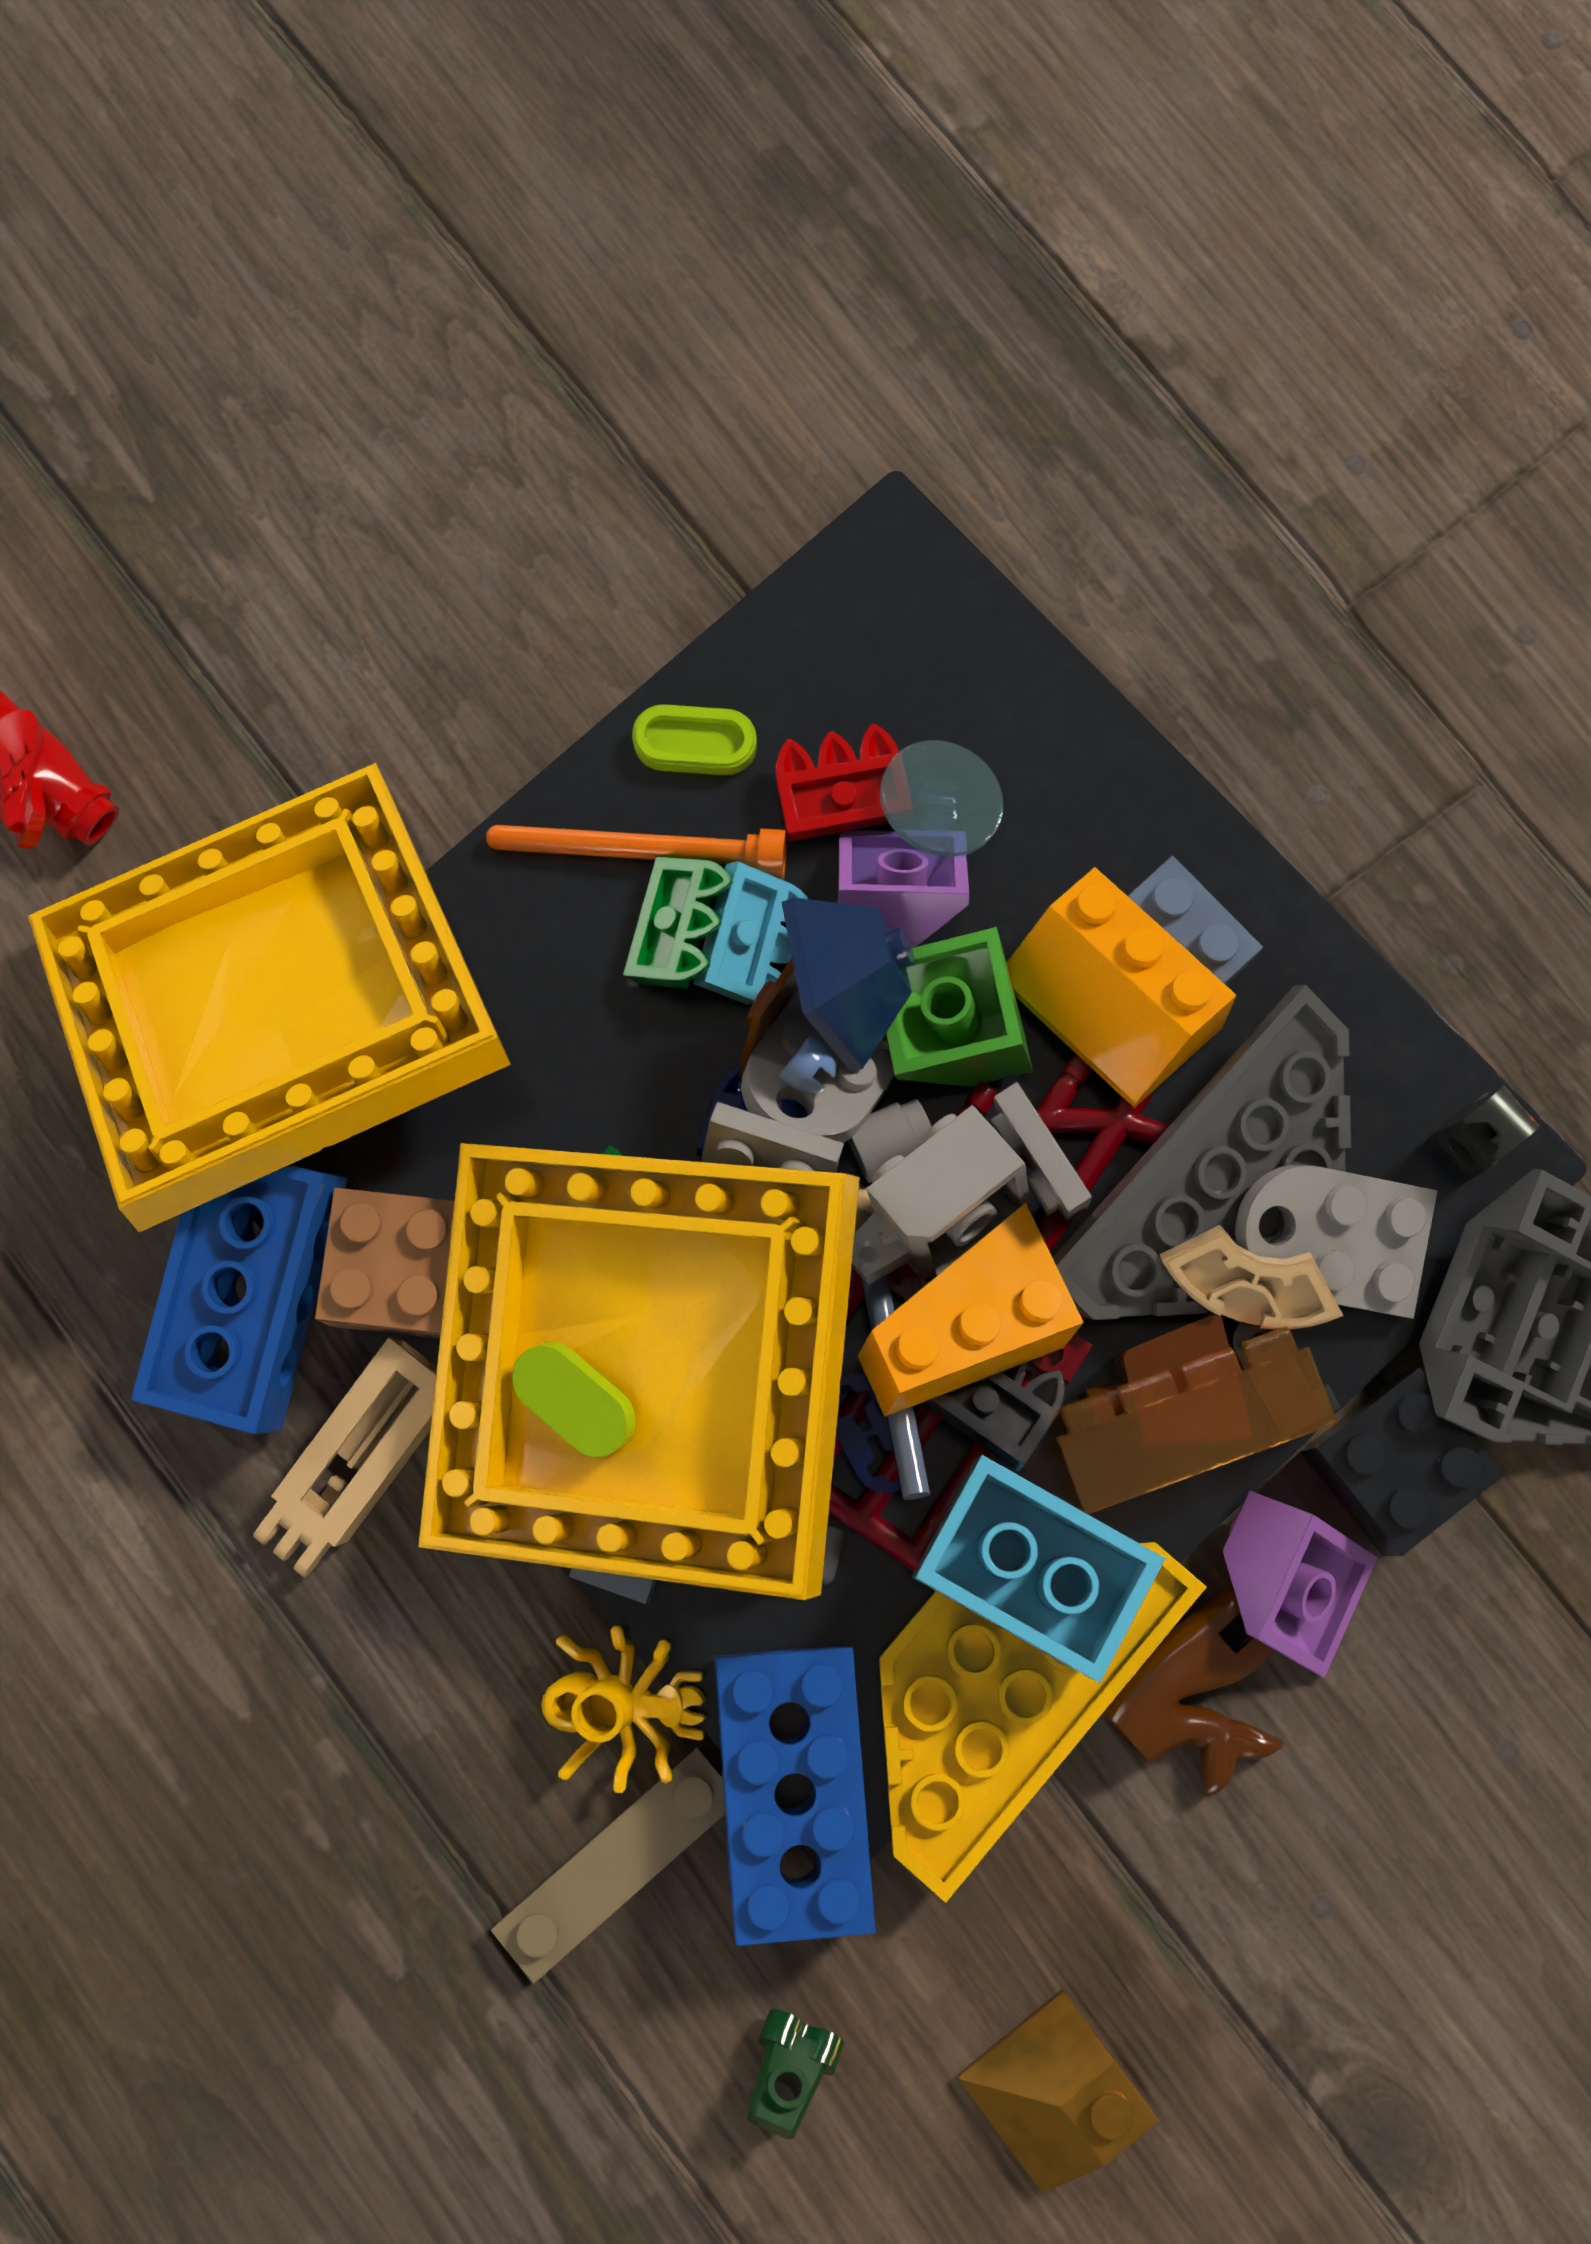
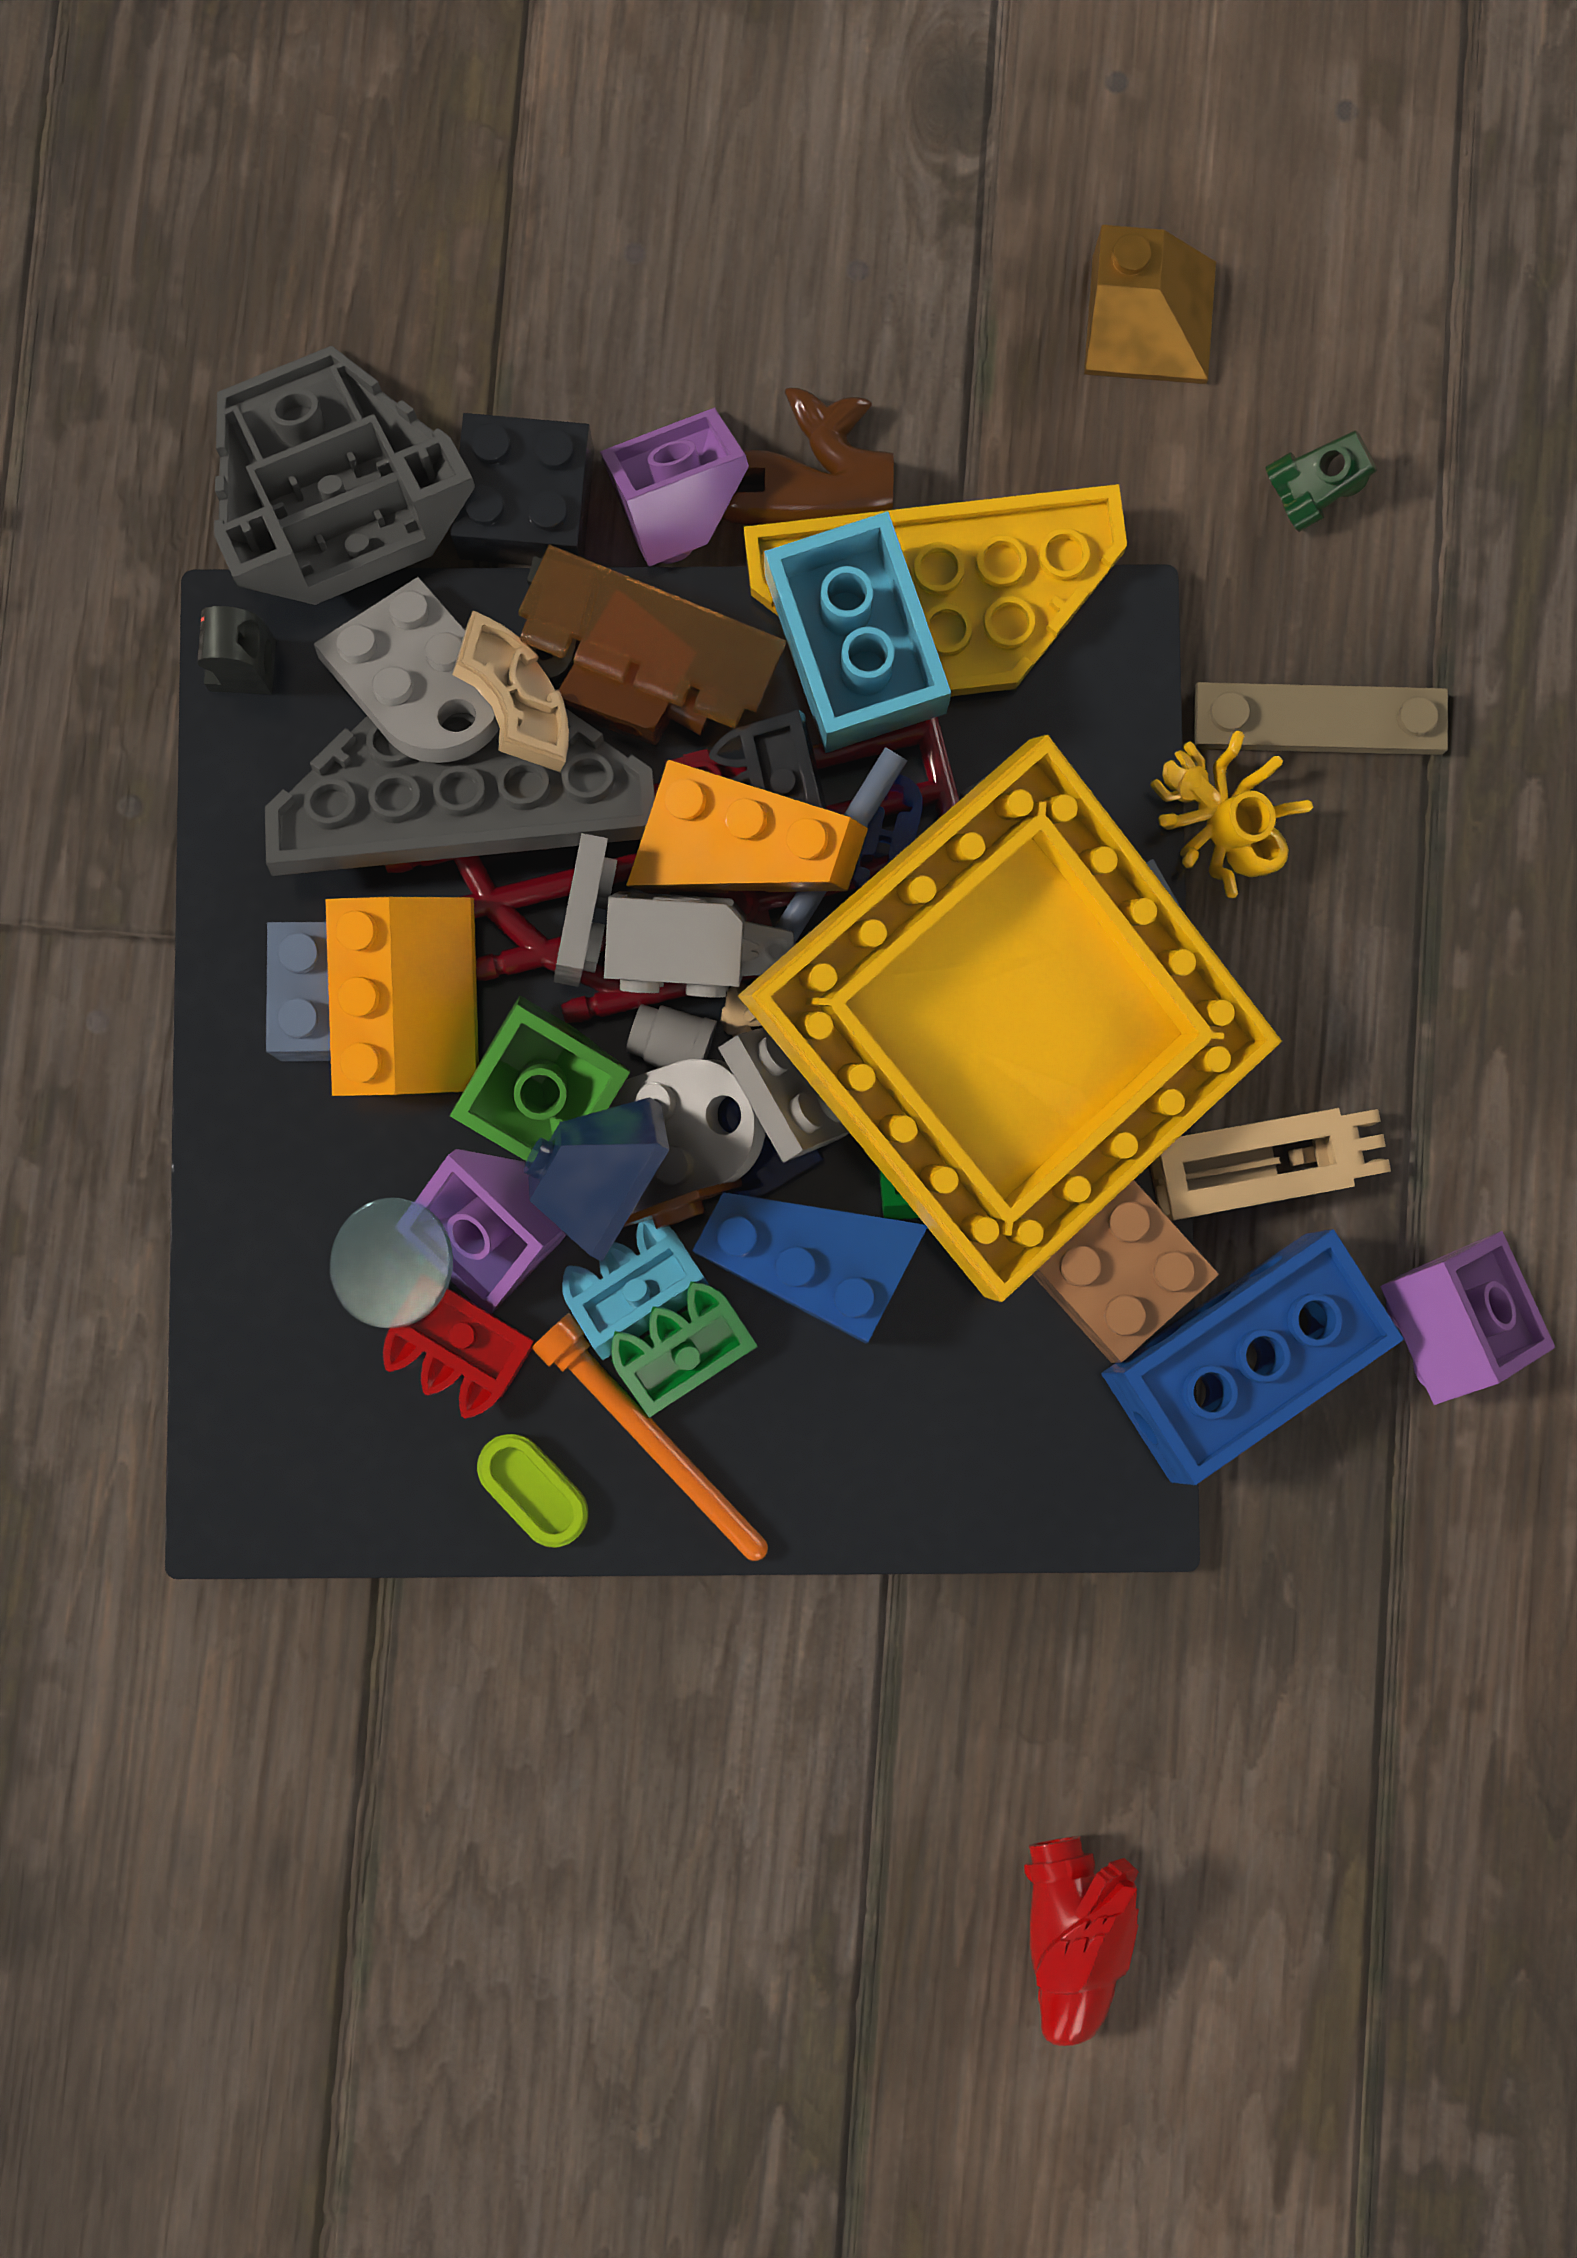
camera: 140 degrees left, 5 degrees up
(97, 1473) = (1467, 1319): none -> medium lavender slope
(261, 997) = (1048, 1570): yellow tile -> none
(574, 1399) = (1082, 1036): lime tile -> none
(638, 1067) = (812, 1257): none -> blue wedge
(805, 1063) = (691, 1132): medium blue hinge -> none
(837, 1892) = (1149, 606): blue brick -> none

